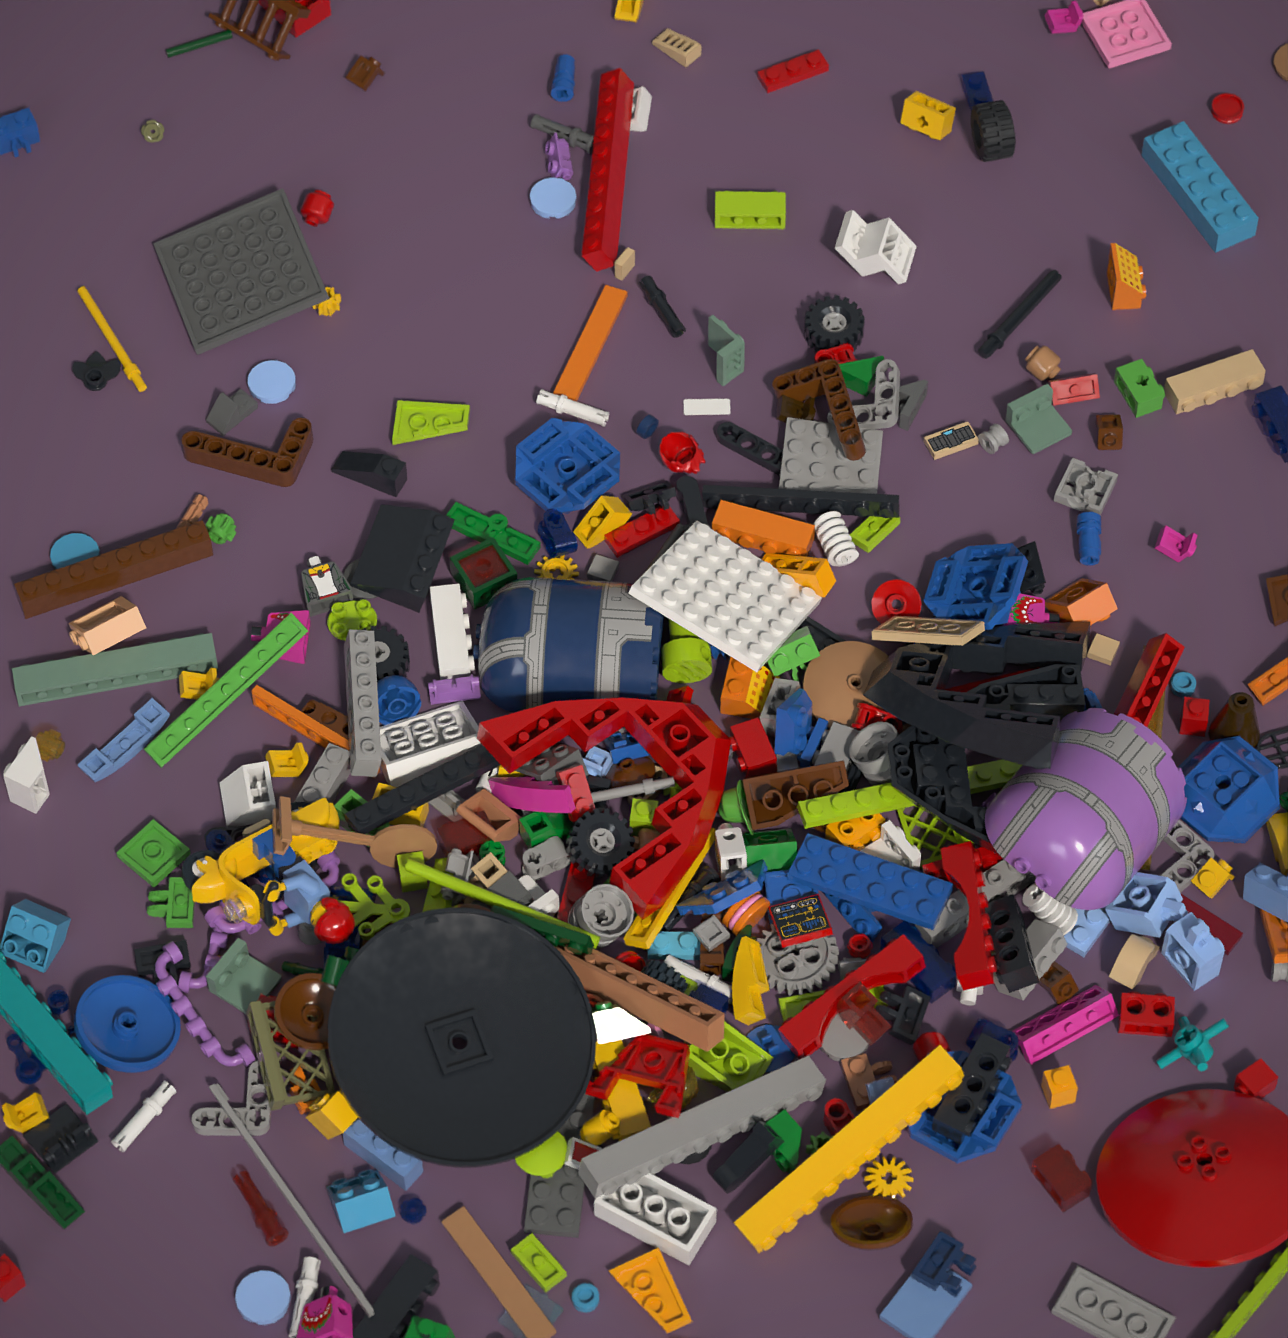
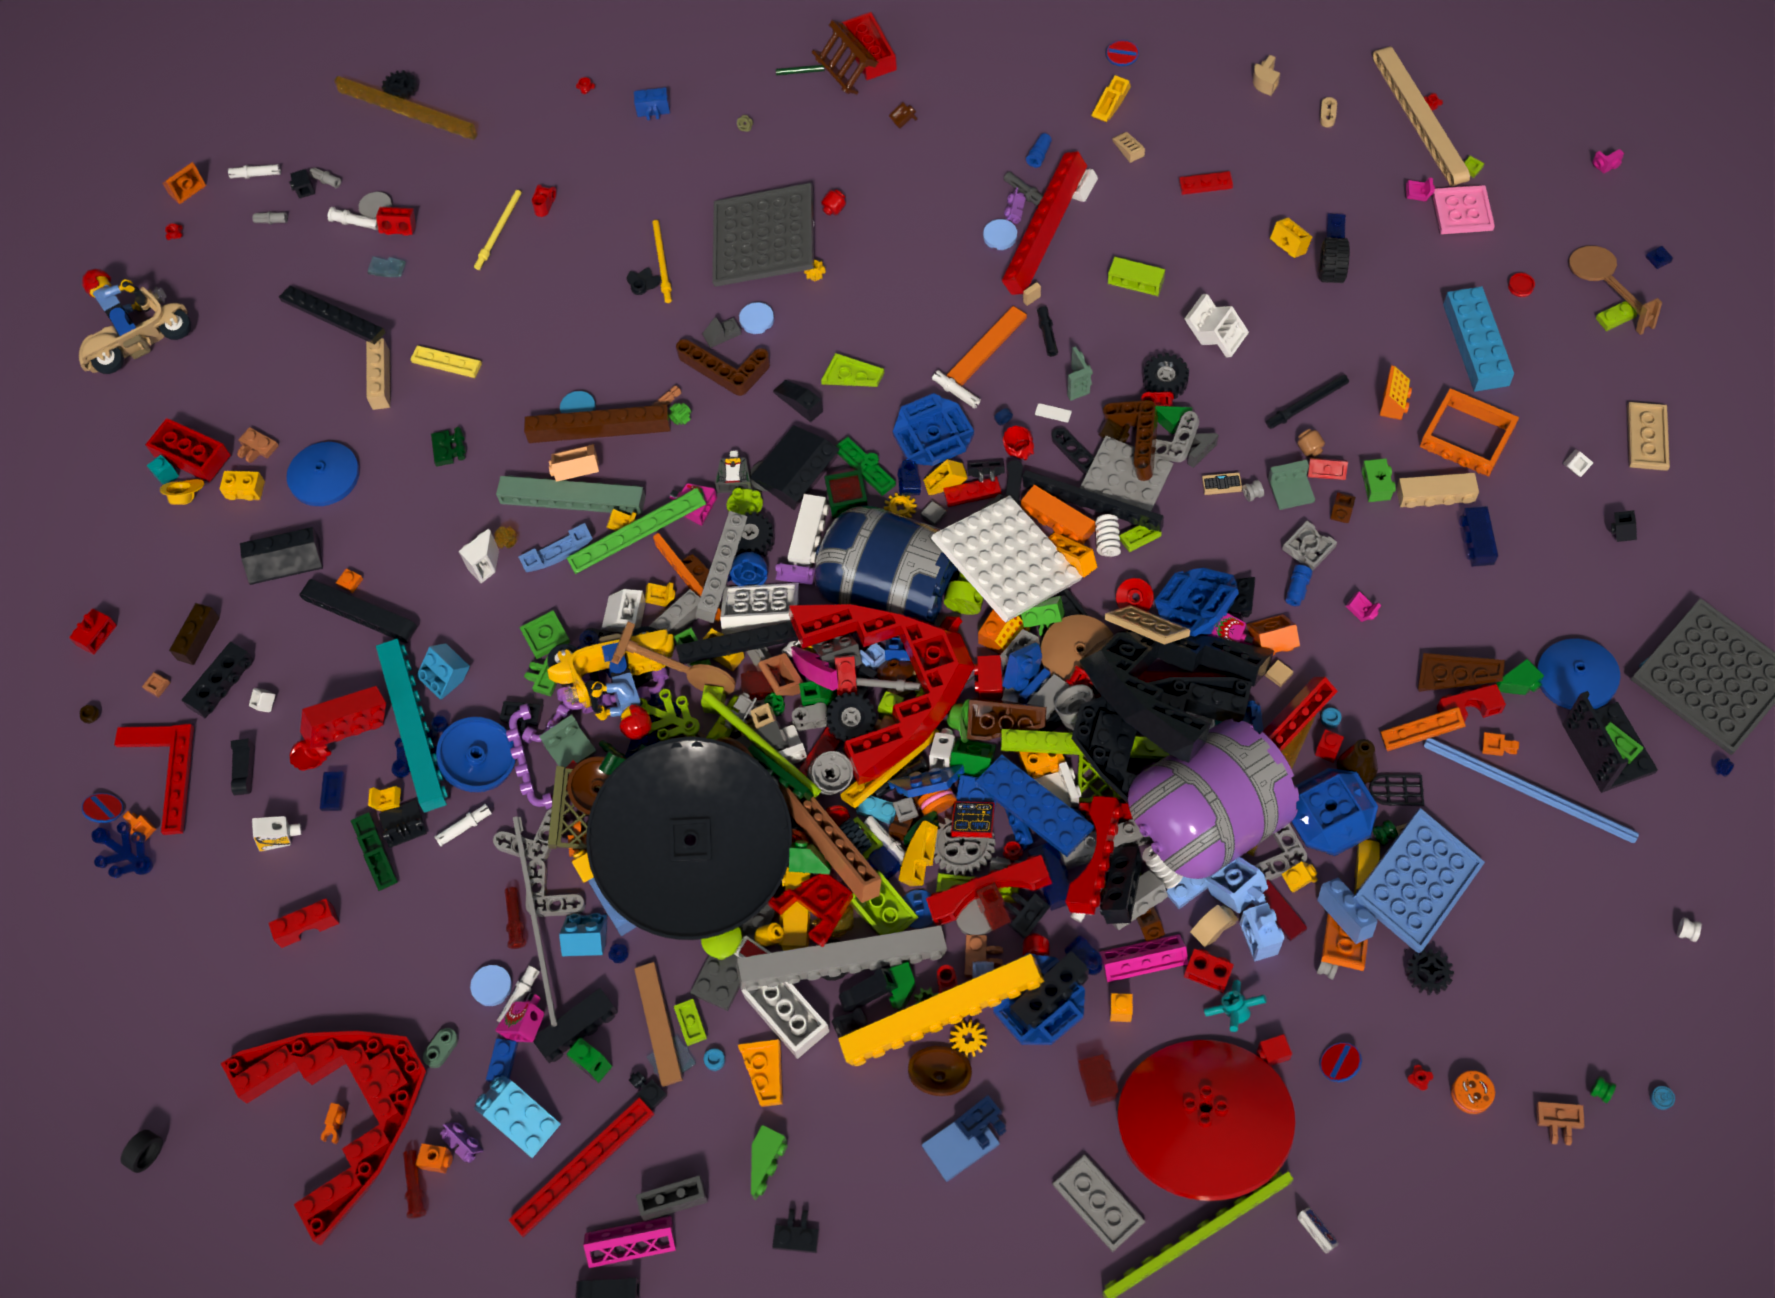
camera: 25 degrees right, 5 degrees up
(286, 1175) = (540, 896): none -> light grey beam
(739, 1202) = (849, 1023): none -> black bracket
(1230, 273) = (1476, 409): none -> orange window

